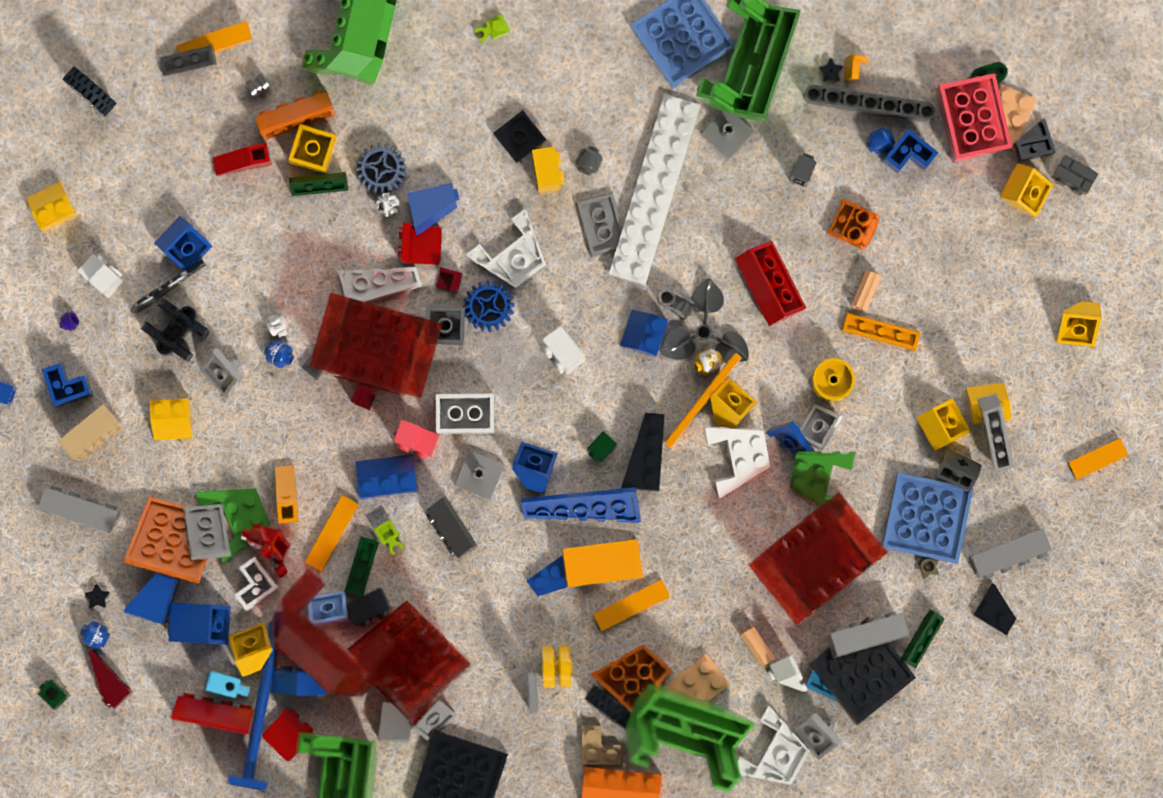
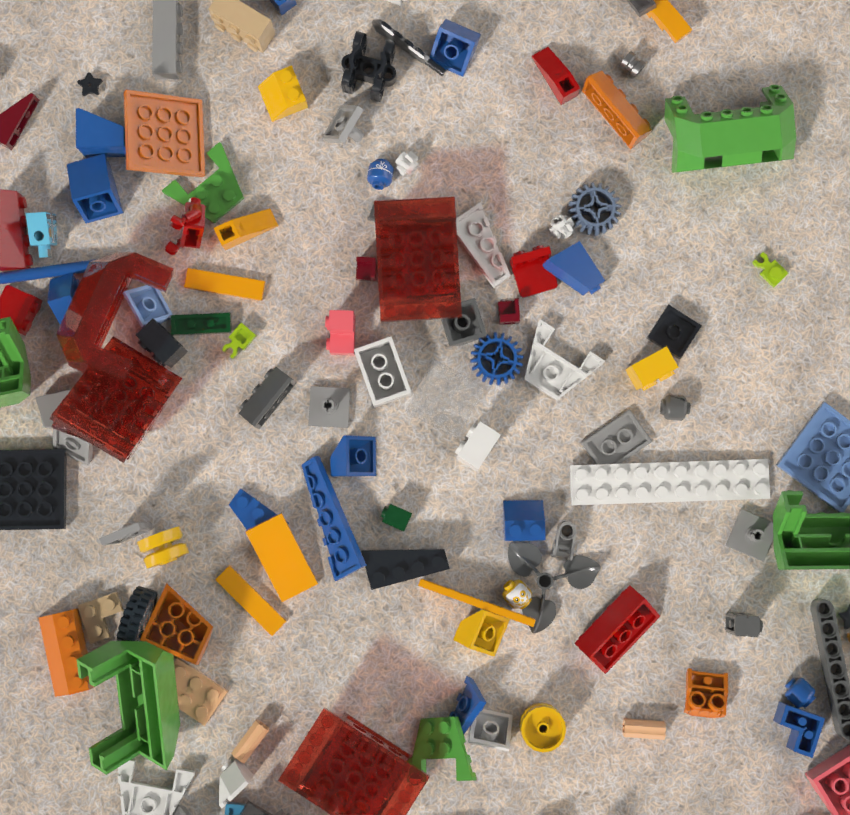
camera: 70 degrees right, 0 degrees up
(94, 635) = (52, 94): blue head -> none
(206, 531) = (182, 162): light grey tile -> none
(251, 648) = (85, 244): yellow slope -> none
(260, 584) = (149, 232): white brick -> none
(313, 149) = (590, 136): yellow brick -> none
(318, 184) = (558, 154): dark green plate -> none
(386, 476) = (296, 317): blue slope -> none
(746, 453) = (438, 664): white wing -> none
(881, 331) = (608, 758): light orange tile -> none

